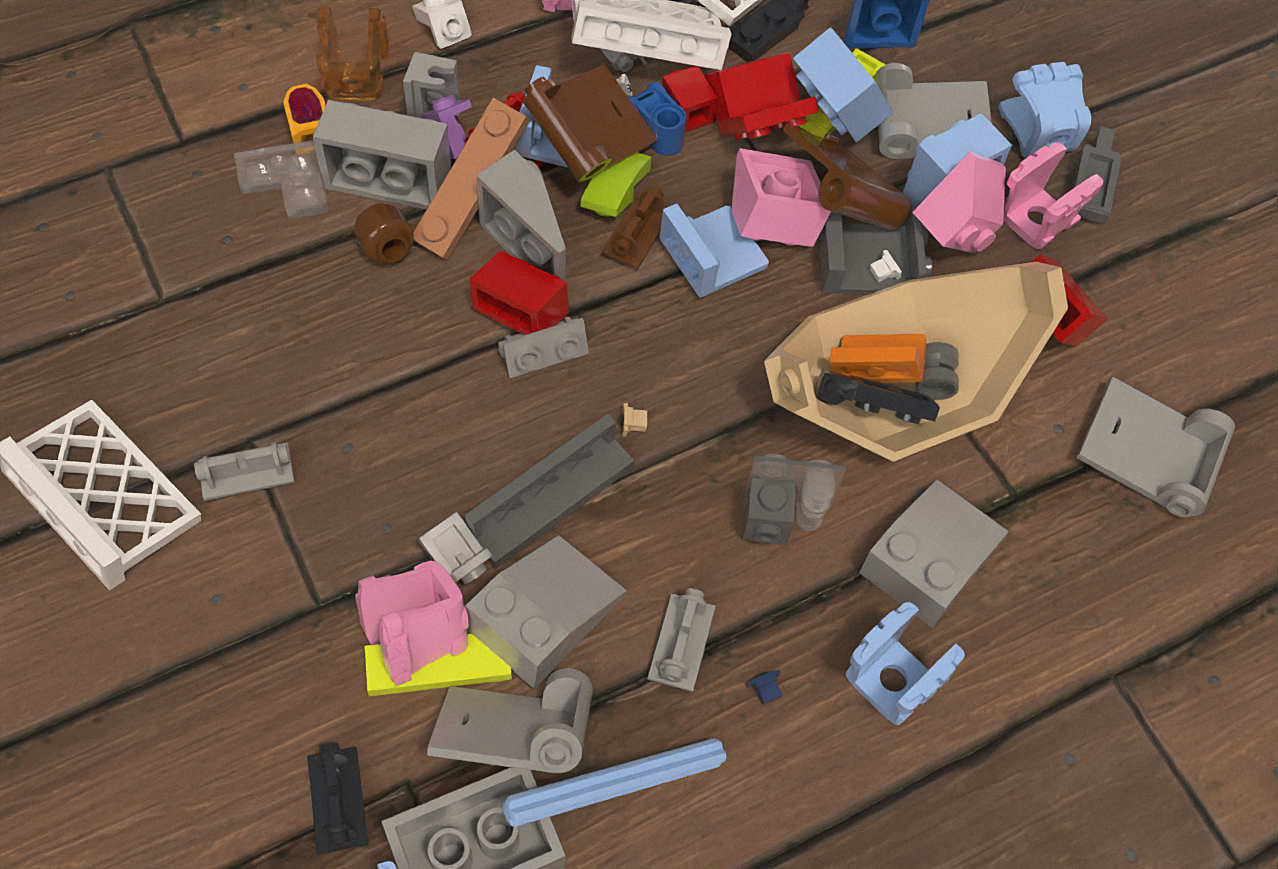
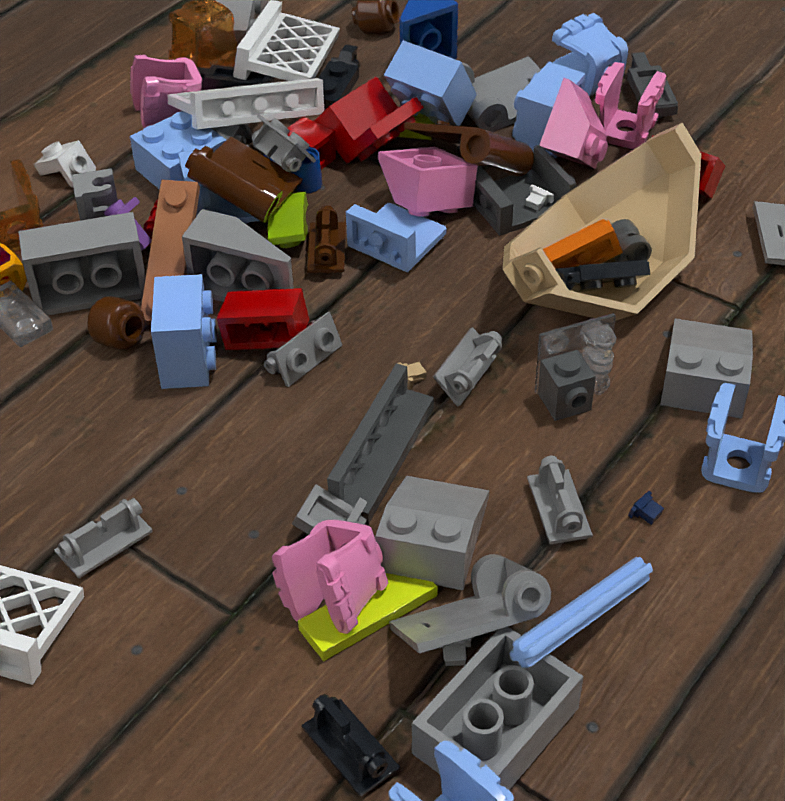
camera: 20 degrees left, 15 degrees down
(430, 277) = (183, 331): none -> light blue brick
(548, 43) = (158, 145): none -> light blue brick
(650, 98) = (276, 144): none -> light grey hinge
(688, 438) = (467, 363): none -> light grey hinge

